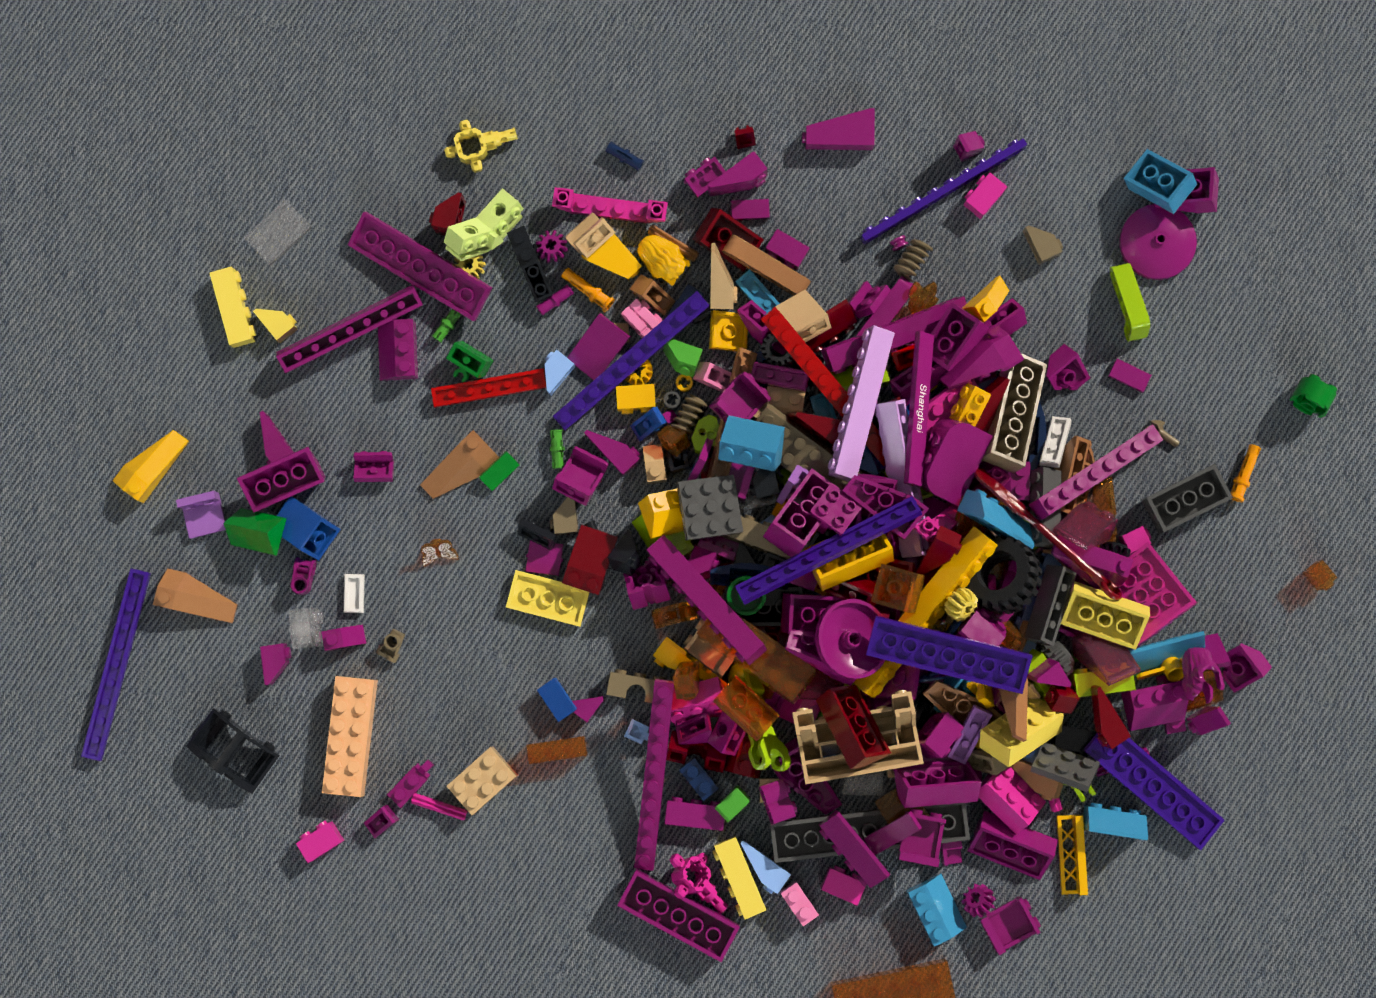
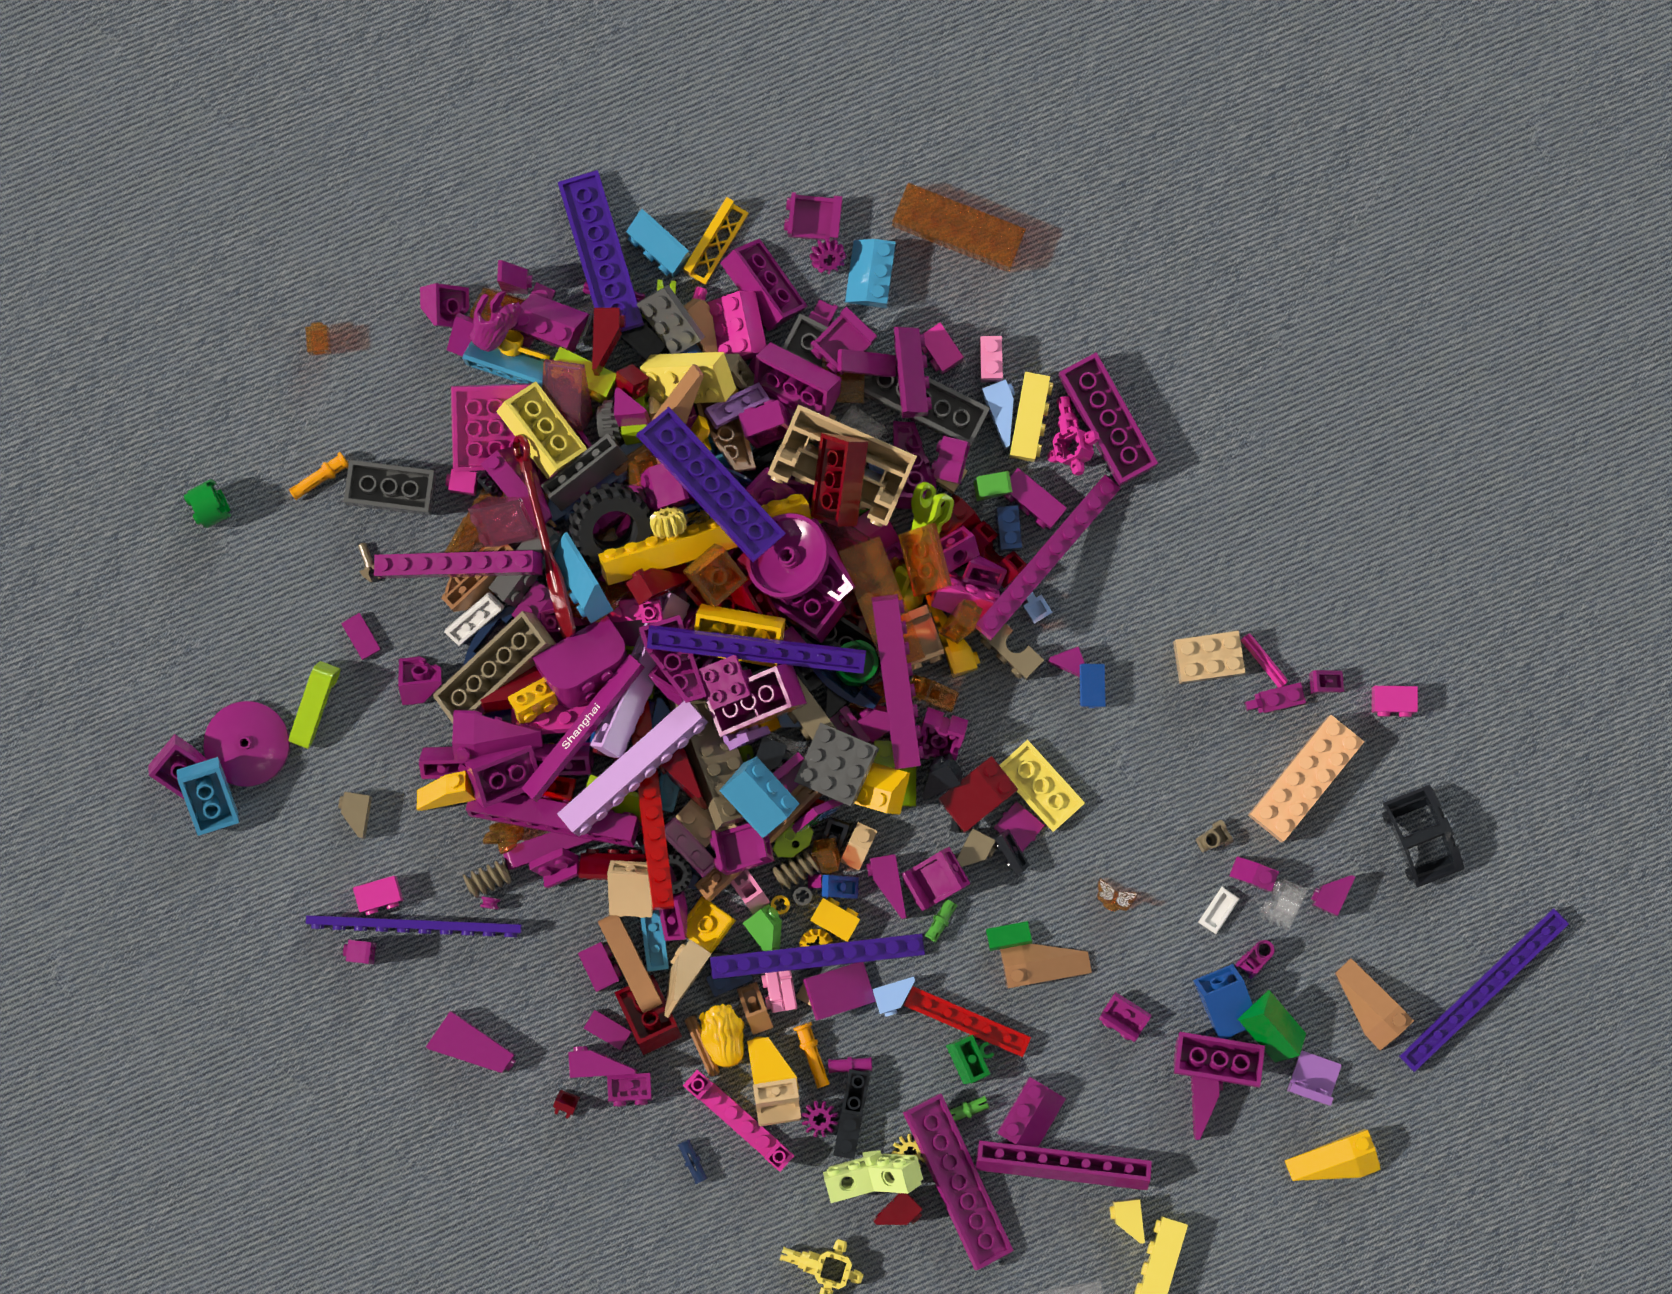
camera: 150 degrees left, 0 degrees up
(557, 749) = (1121, 640): clear orange brick -> none

